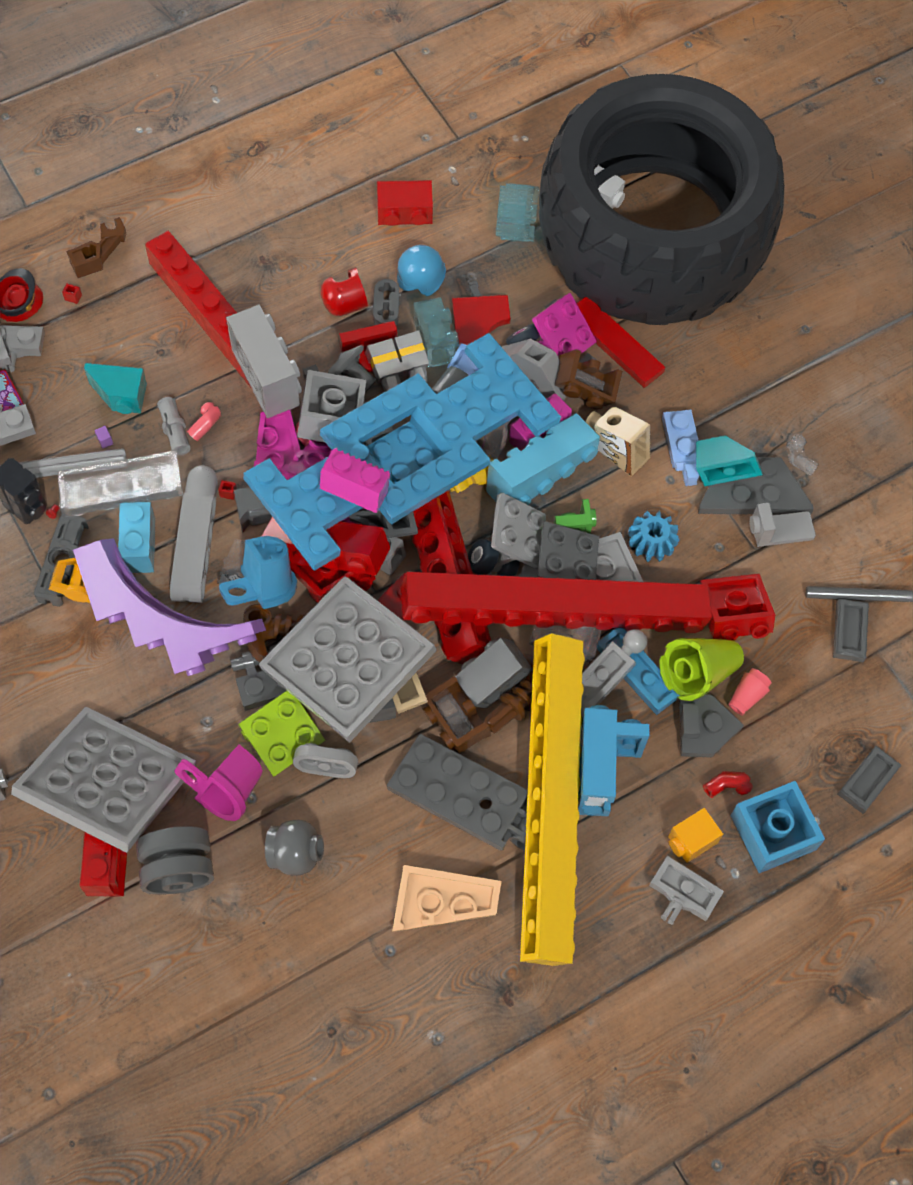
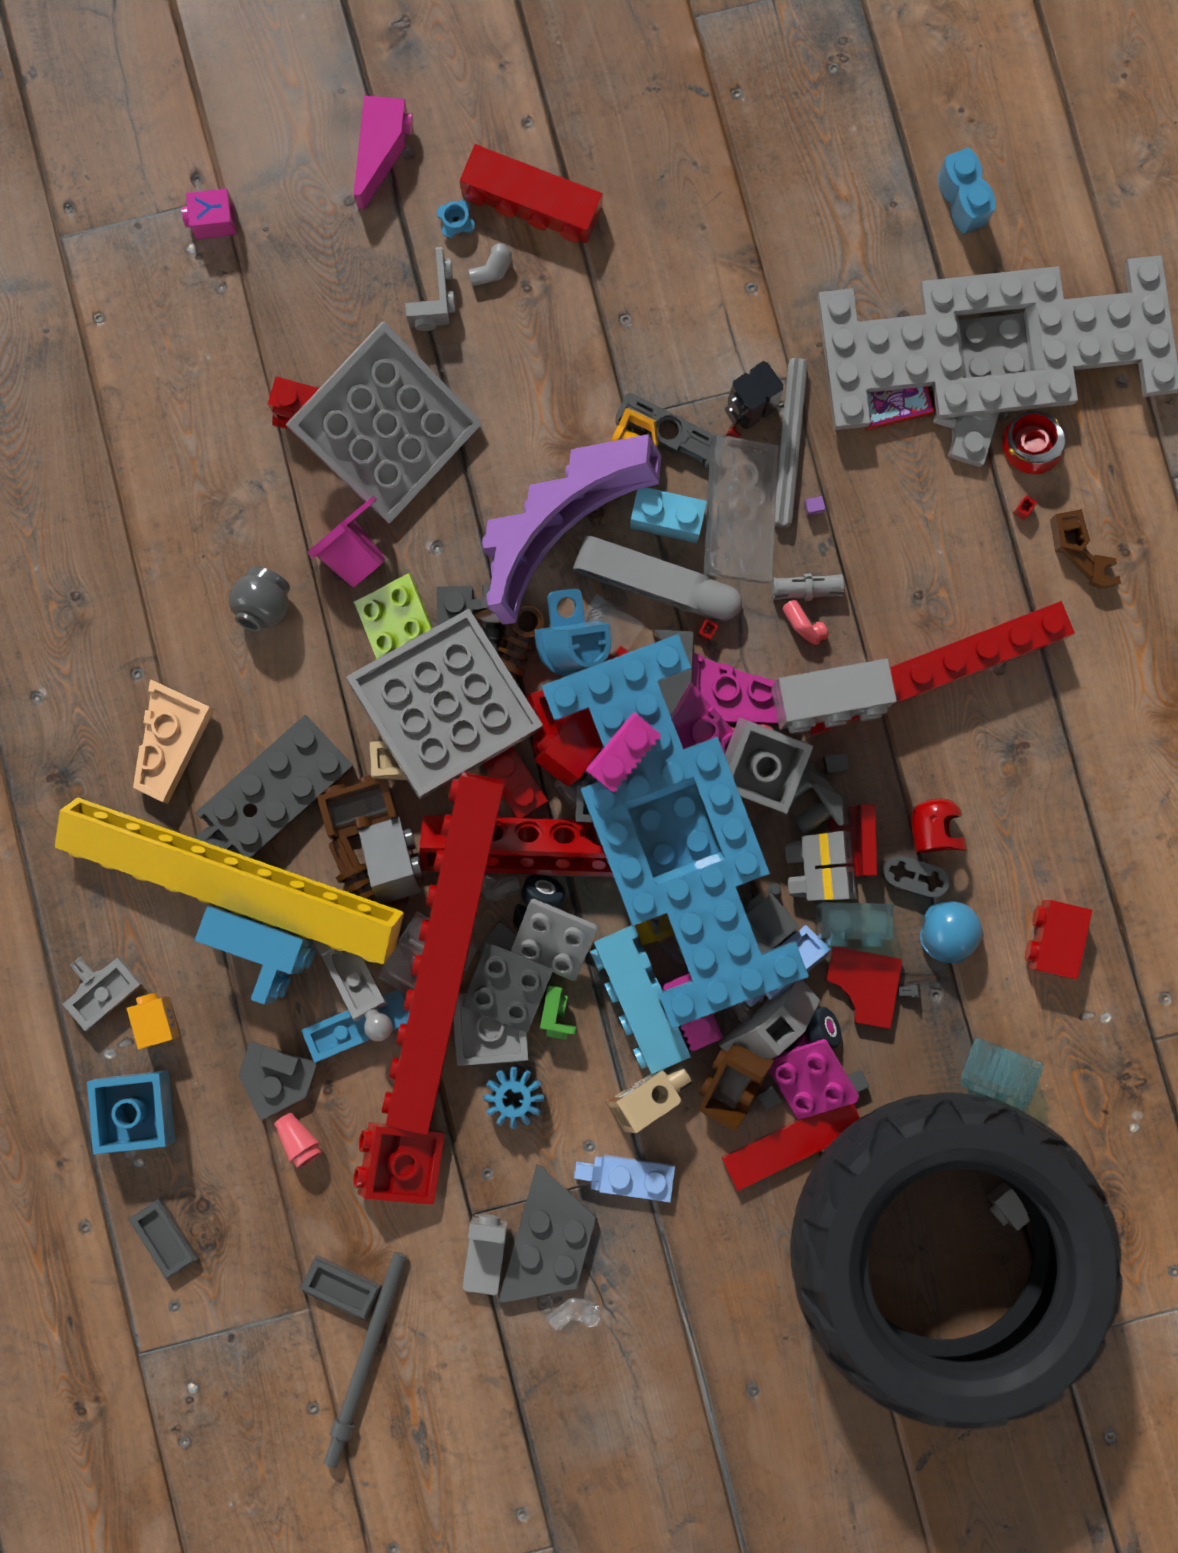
camera: 110 degrees right, 20 degrees up
(118, 386) = (872, 534): teal slope -> none
(174, 860) = (275, 475): dark grey wheel -> none
(325, 761) = (357, 643): light grey plate -> none
(698, 665) = (330, 1093): lime cone -> none
(725, 461) = (580, 1210): teal slope -> none
(728, 779) = (205, 1083): red arm -> none

